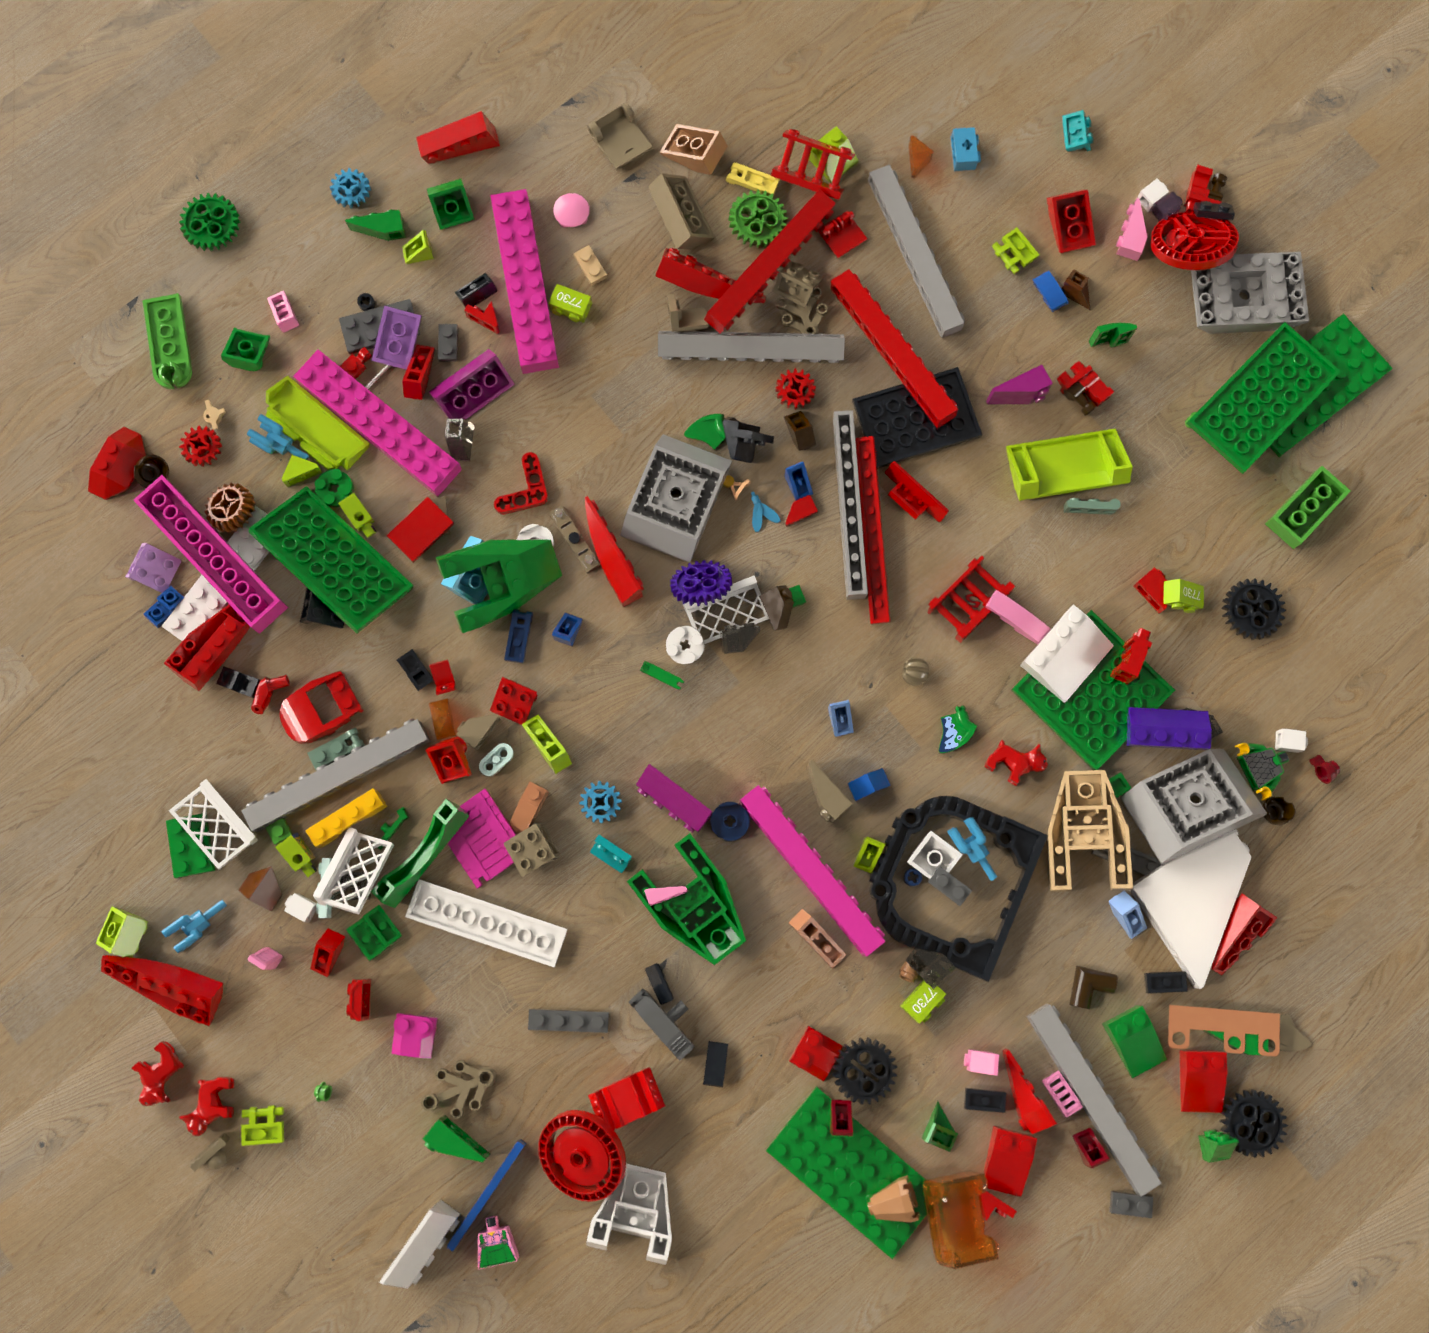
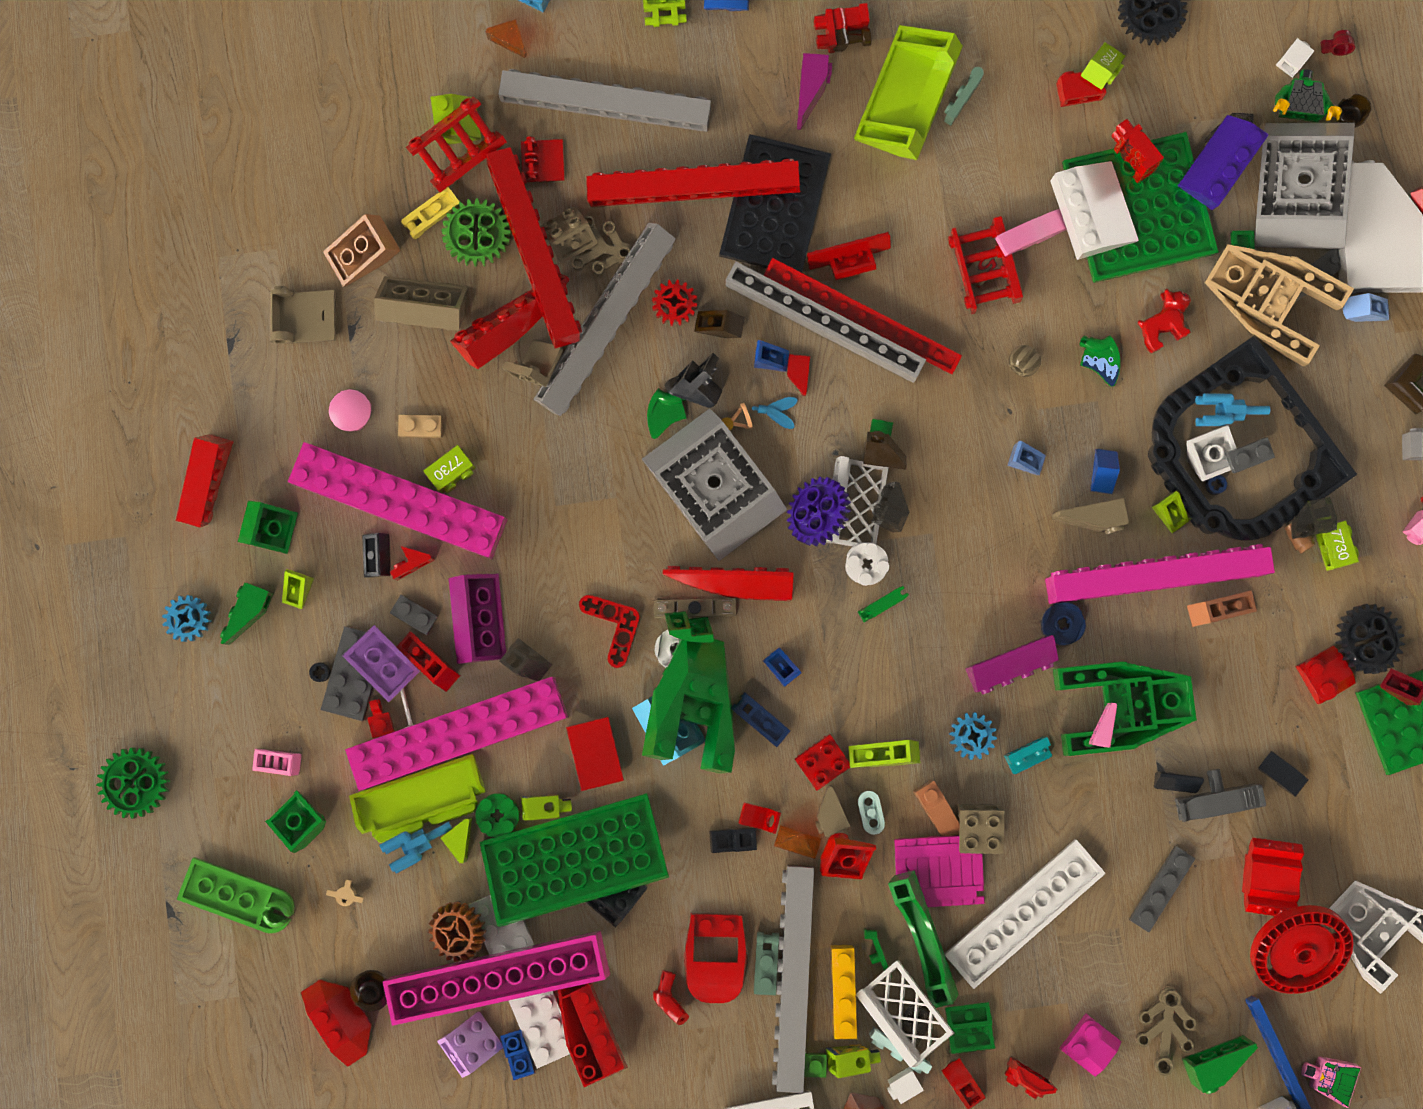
camera: 55 degrees left, 5 degrees up
(201, 453) = (365, 919): red gear -> none
(238, 682) = (641, 1022): black slope -> none
(552, 538) = (689, 629): none -> green slope

